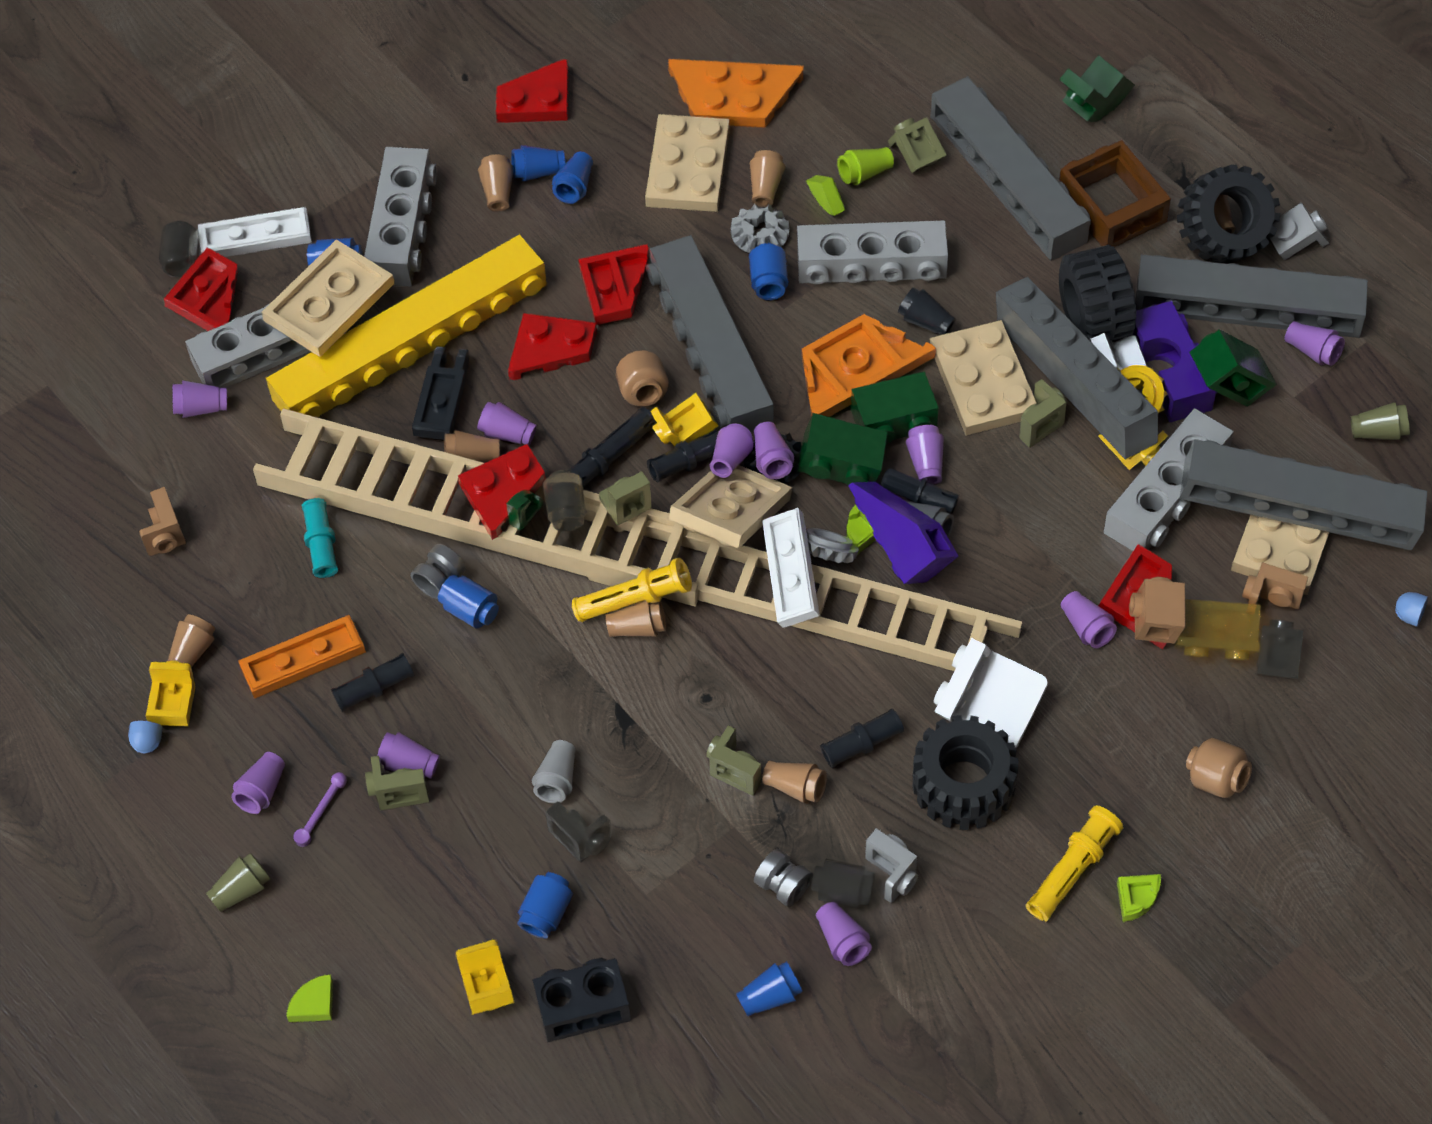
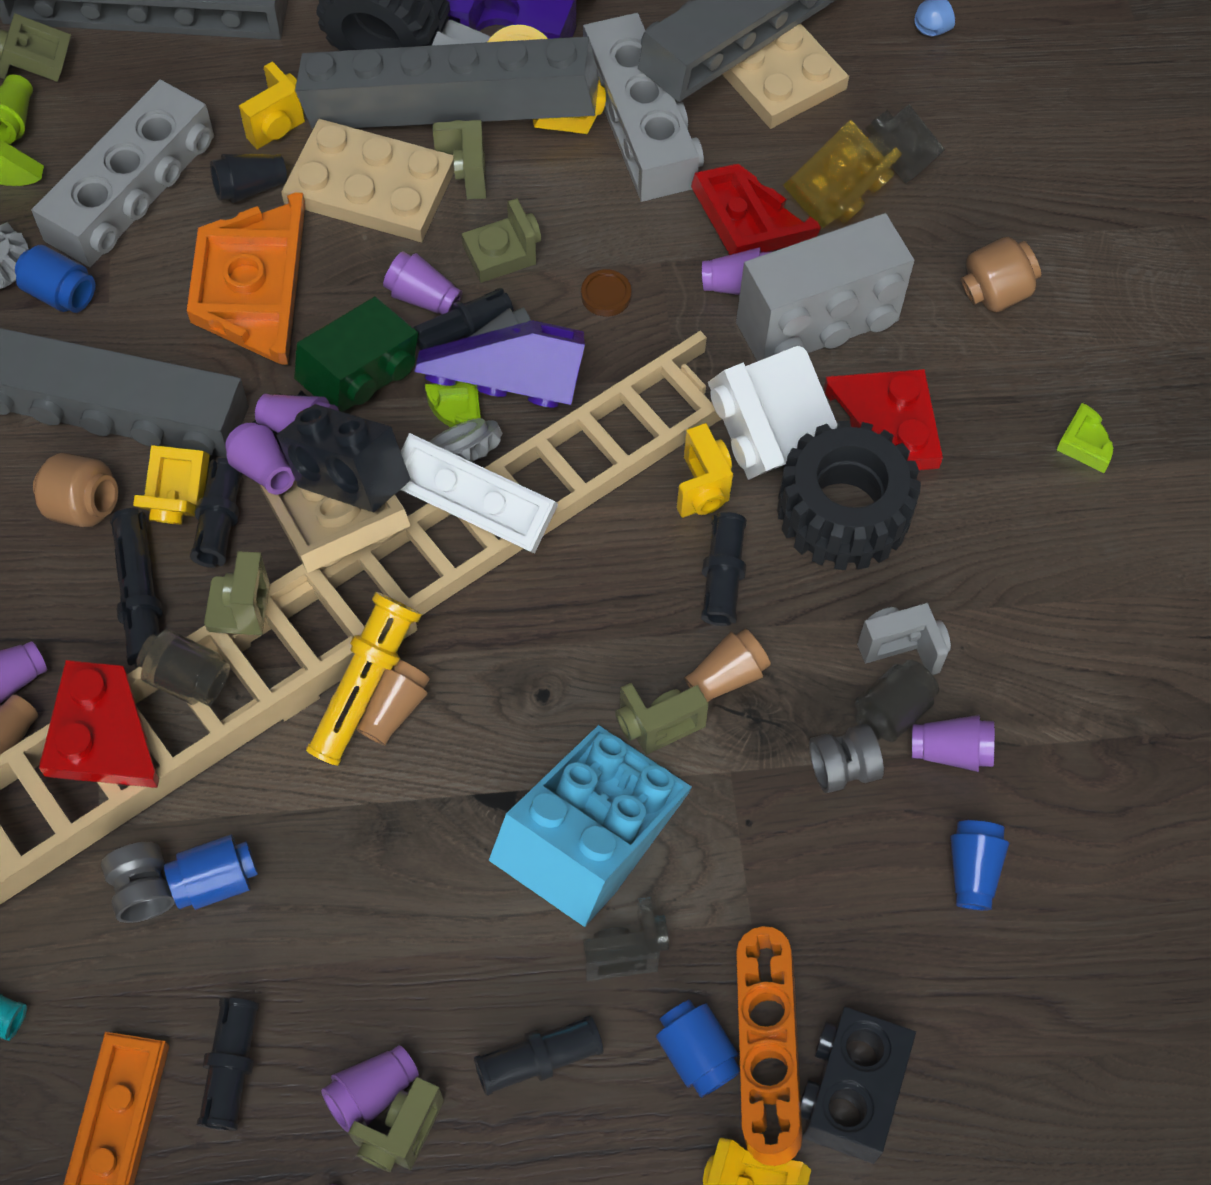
camera: 60 degrees left, 5 degrees up
(483, 827) = (538, 1055): none -> black pin
(523, 508) = (153, 723): dark green tile -> none
(555, 773) = (527, 921): light grey cone -> none
(567, 931) = (768, 1042): none -> orange beam
(639, 767) = (587, 824): none -> medium azure slope
(751, 485) = (344, 457): none -> black brick
(895, 405) = (340, 272): dark green brick -> none
(919, 693) = (711, 470): none -> yellow bracket
(979, 292) = (273, 110): none -> yellow bracket
(996, 477) = (503, 244): none -> olive bracket
(1013, 556) = (606, 293): none -> reddish brown piece
(1056, 770) = (894, 403): none -> red wing
(1084, 848) = (1009, 449): yellow pin -> none
(1102, 667) = (825, 289): none -> light grey brick
(1158, 610) = (794, 200): medium nougat brick -> none
(1276, 585) = (830, 100): medium nougat bracket -> none

